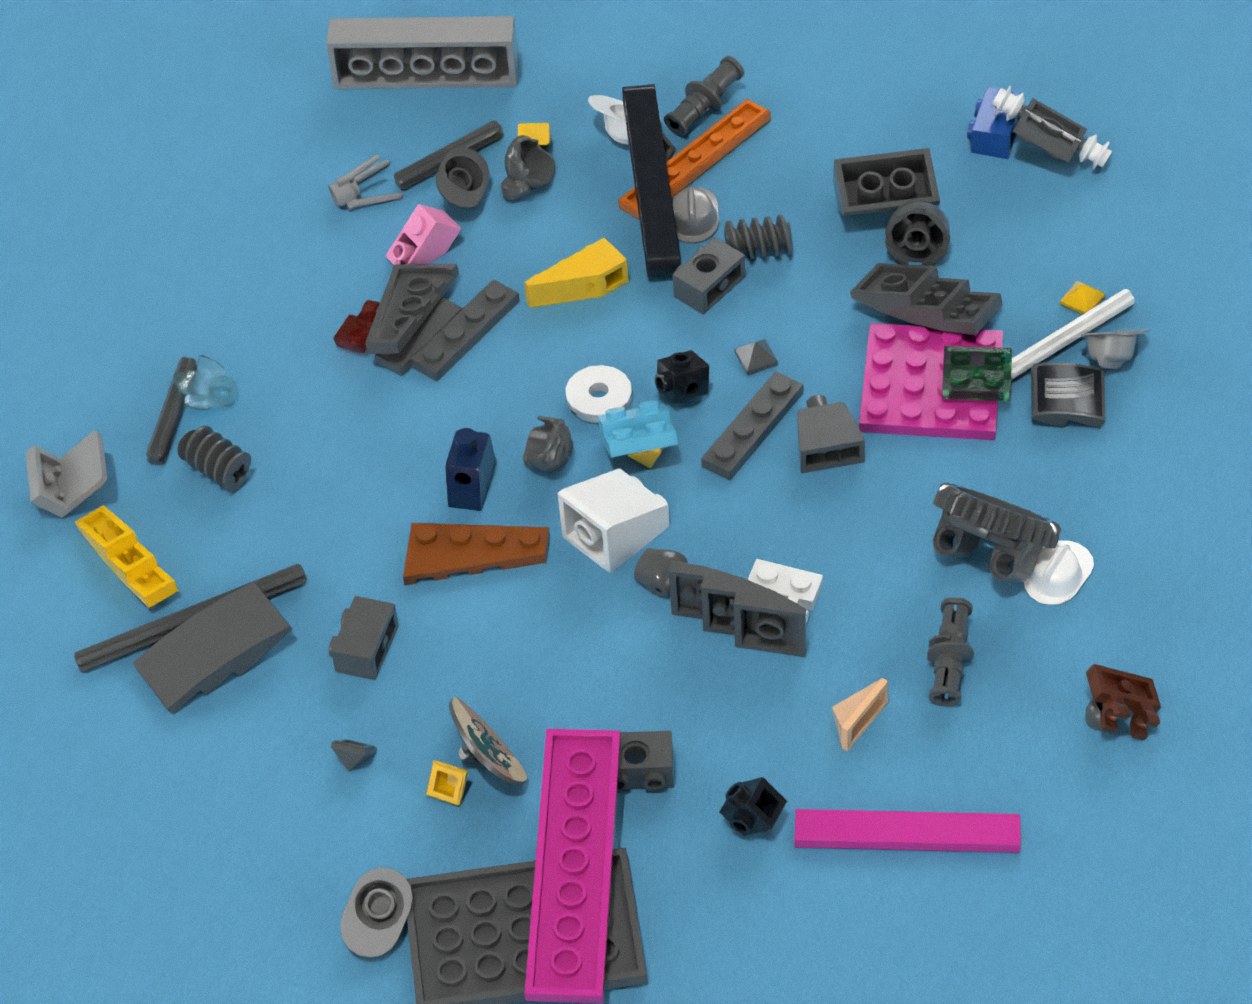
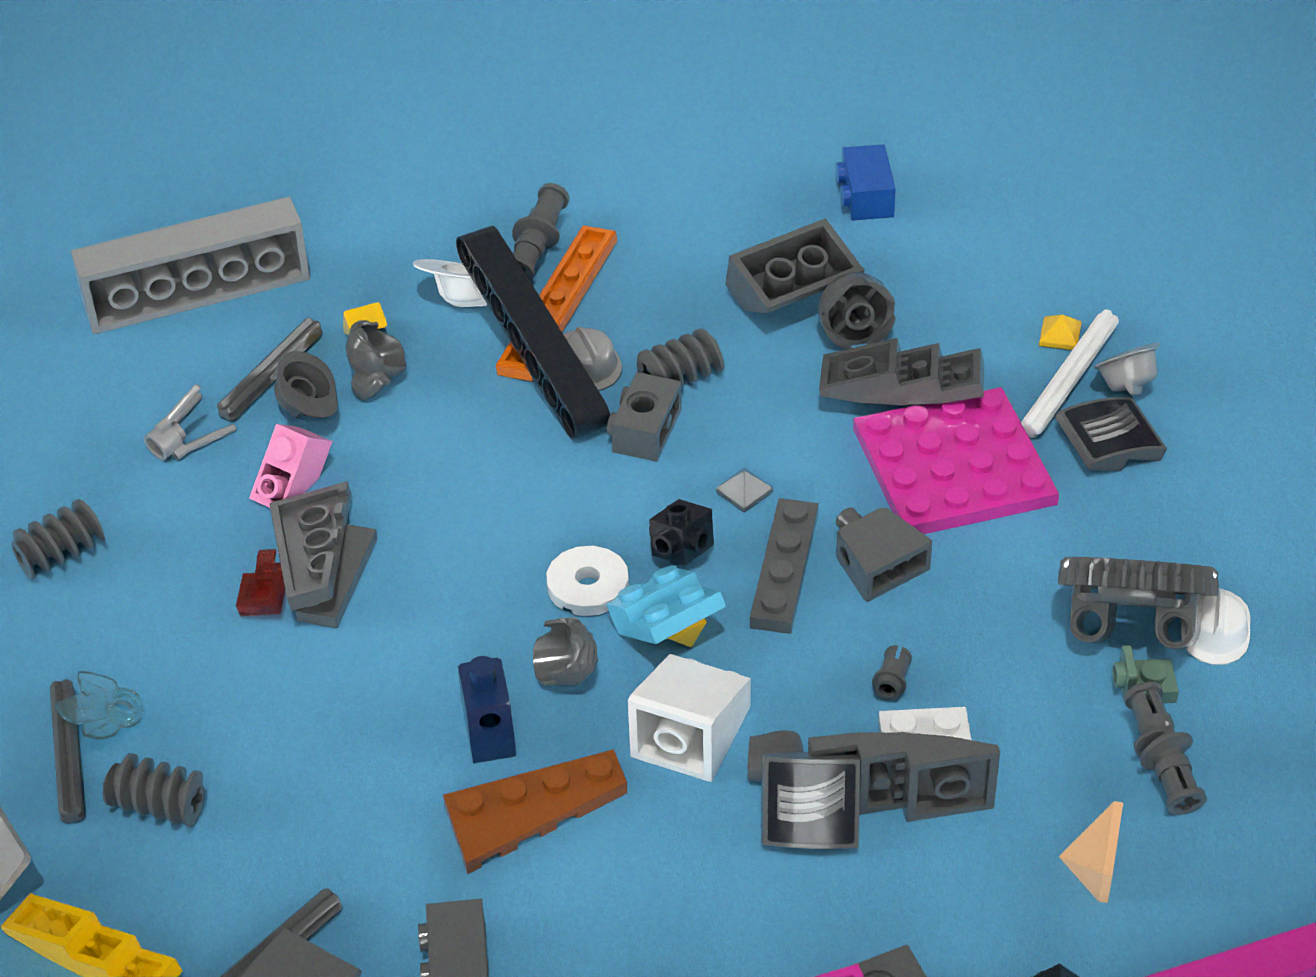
camera: 25 degrees left, 5 degrees down
(230, 248) = (56, 536): none -> dark grey piece
(465, 330) = (389, 555): dark grey plate -> none
(582, 276) = (502, 455): yellow slope -> none
(660, 607) = (810, 800): none -> slope
(778, 538) = (890, 679): none -> dark grey pin
(977, 373) = (1010, 435): clear green bracket -> none
(981, 595) = (1132, 672): none -> sand green bracket
(1050, 129) = (924, 171): dark grey plate -> none

